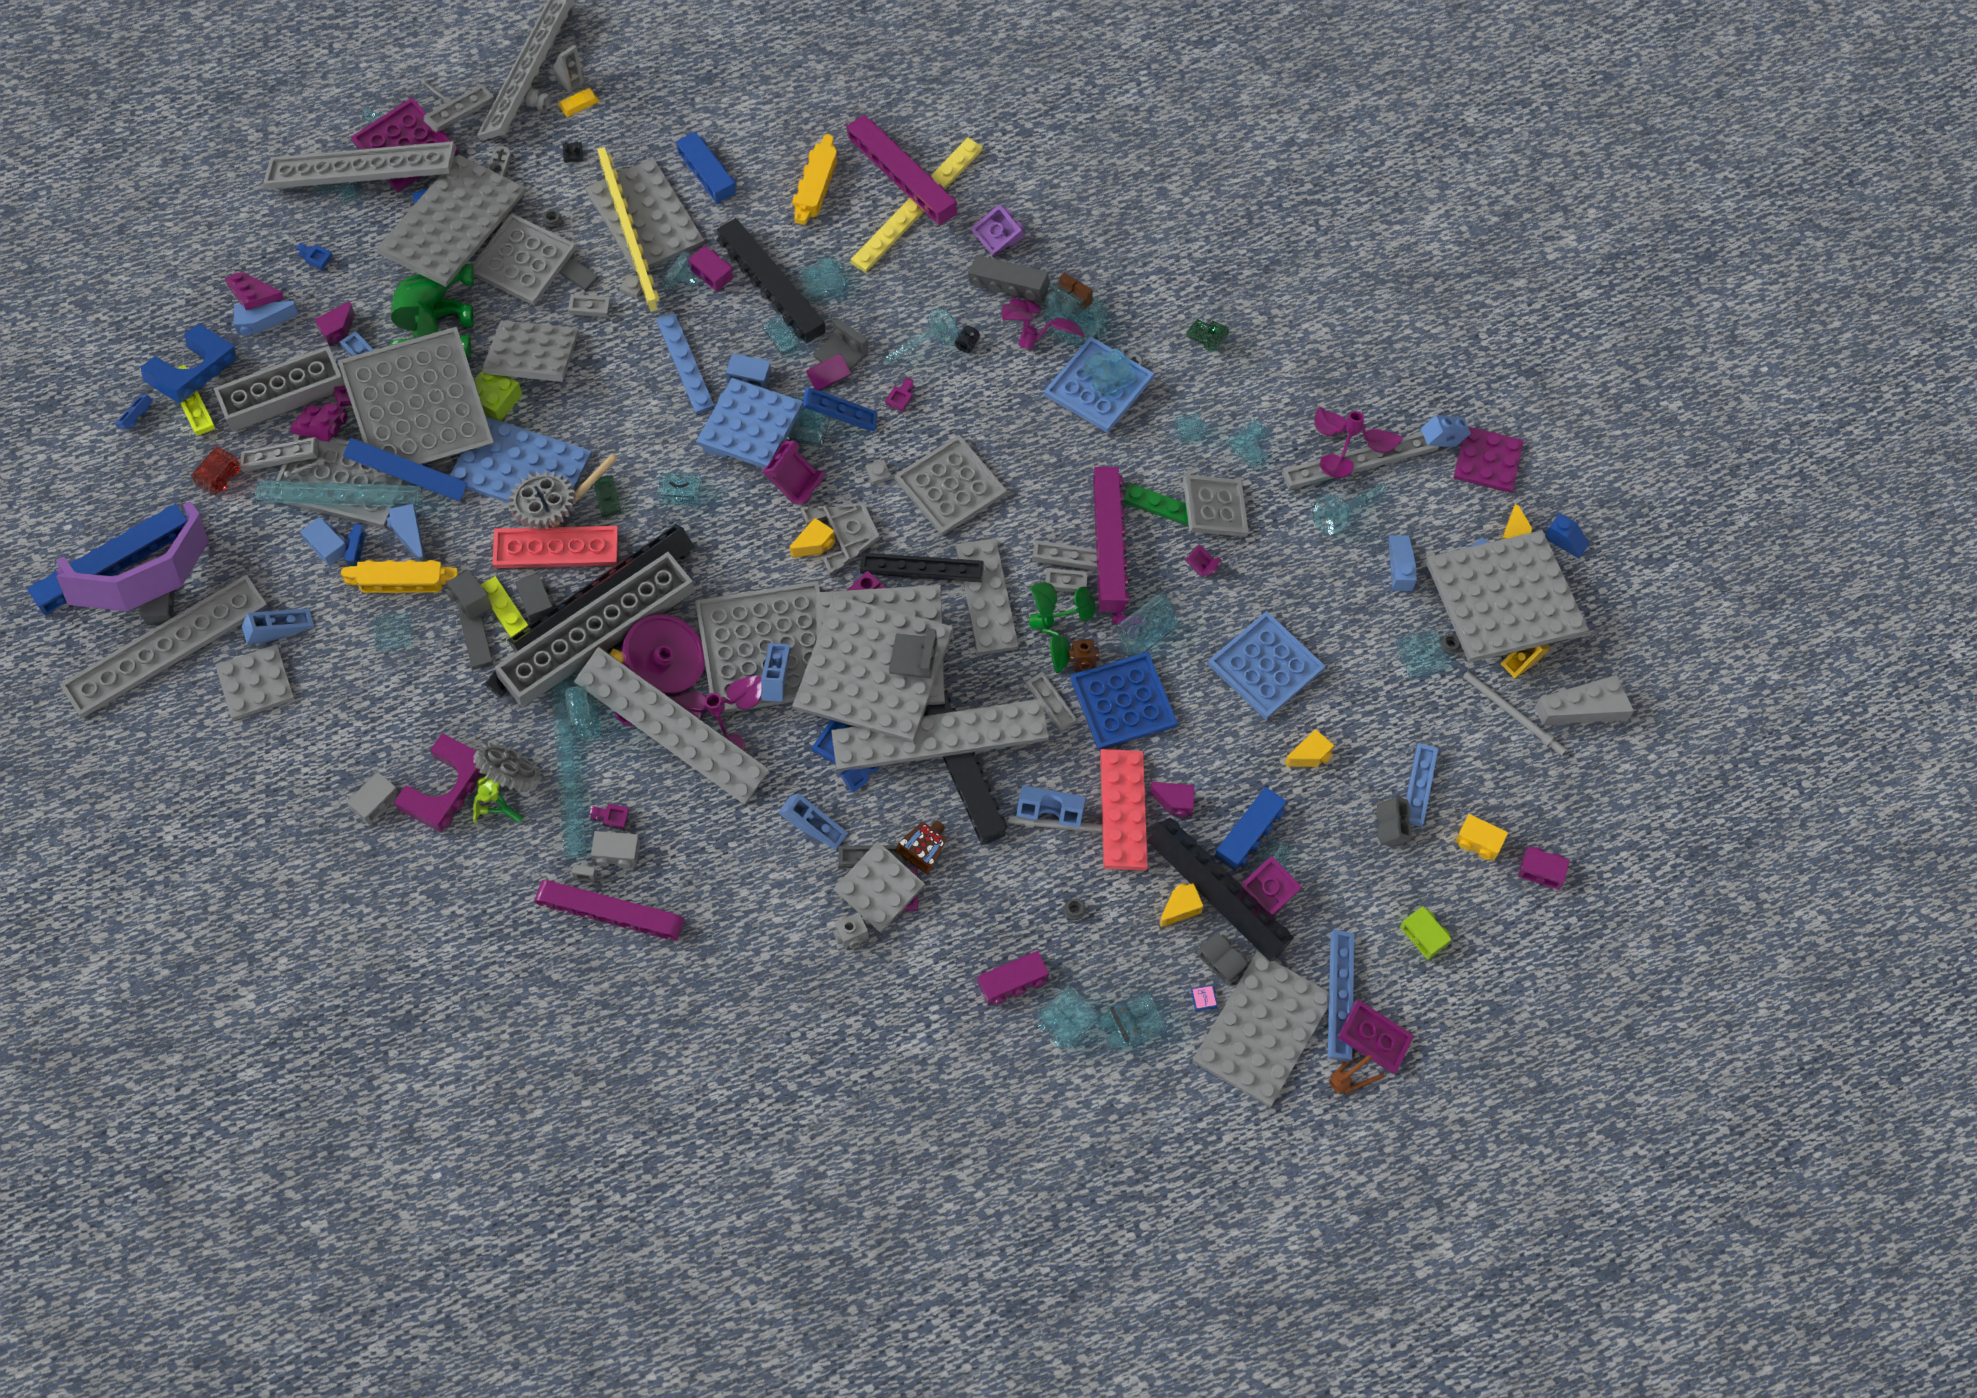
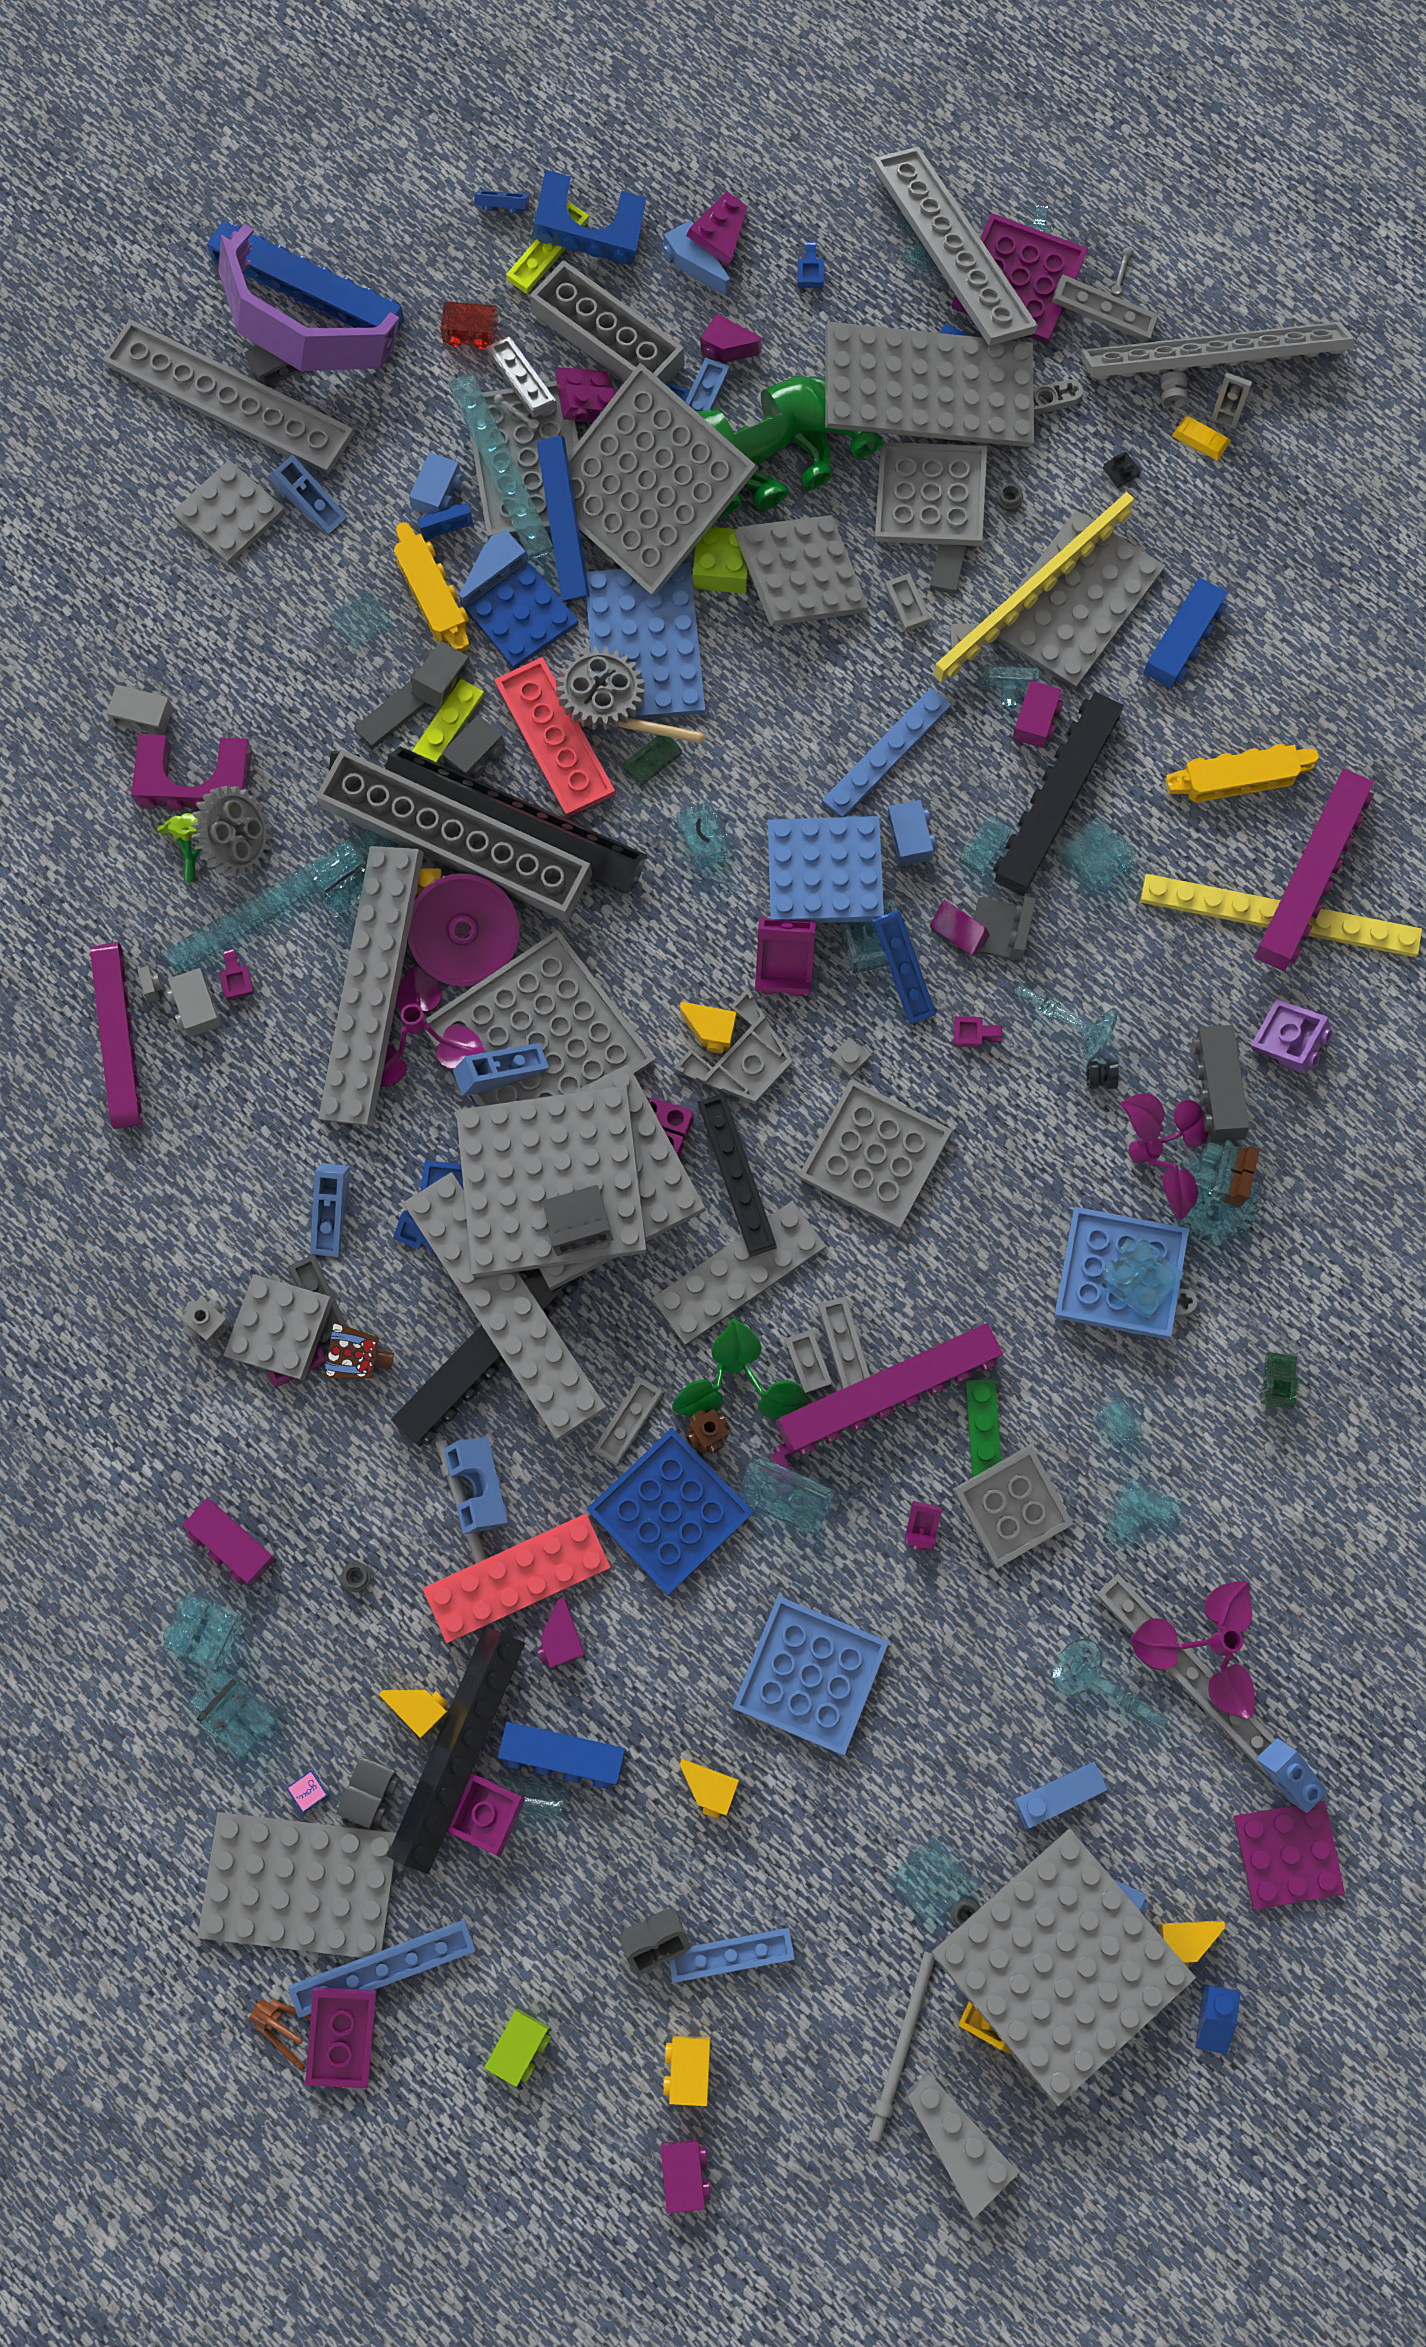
camera: 70 degrees right, 10 degrees up
(454, 531) = (522, 616): none -> blue plate

